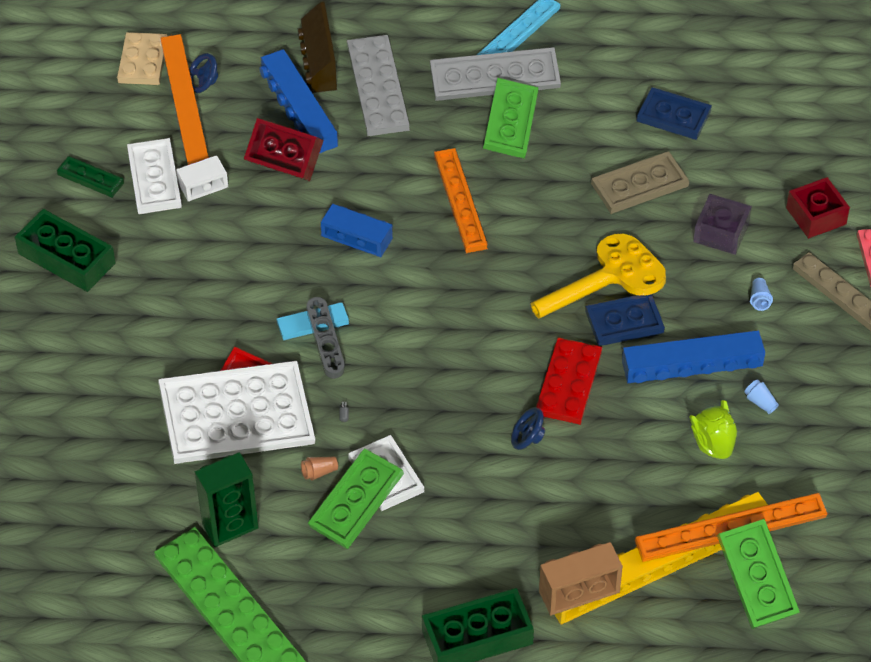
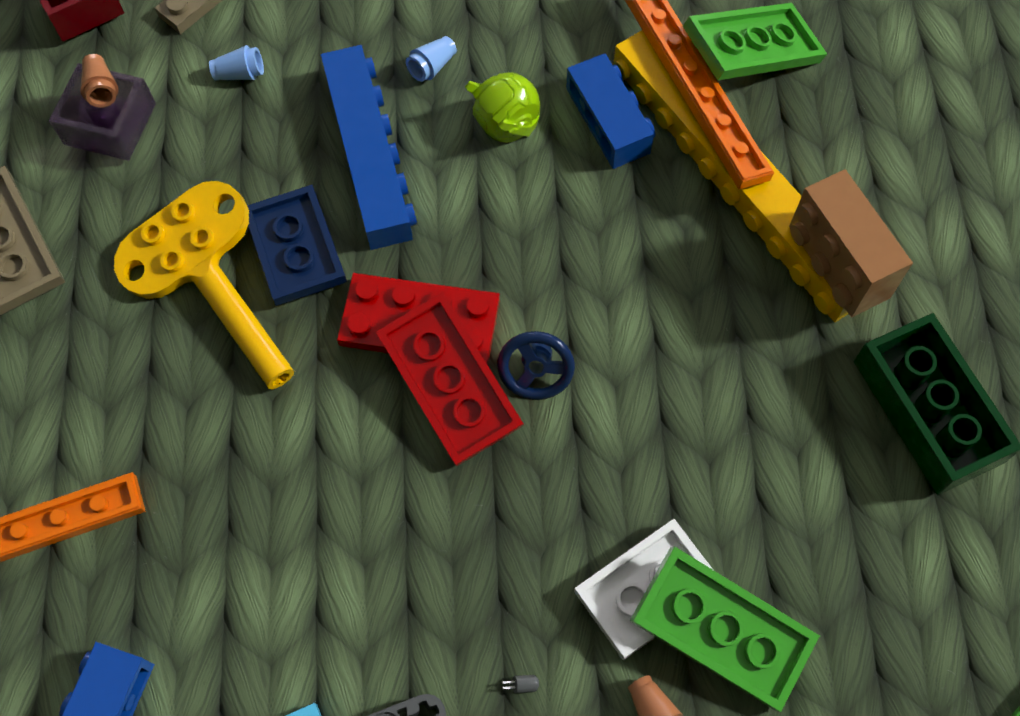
camera: 95 degrees left, 15 degrees up
(523, 384) = (449, 379): none -> red plate
(711, 490) = (610, 110): none -> blue brick
(730, 212) = (97, 82): none -> nougat cone

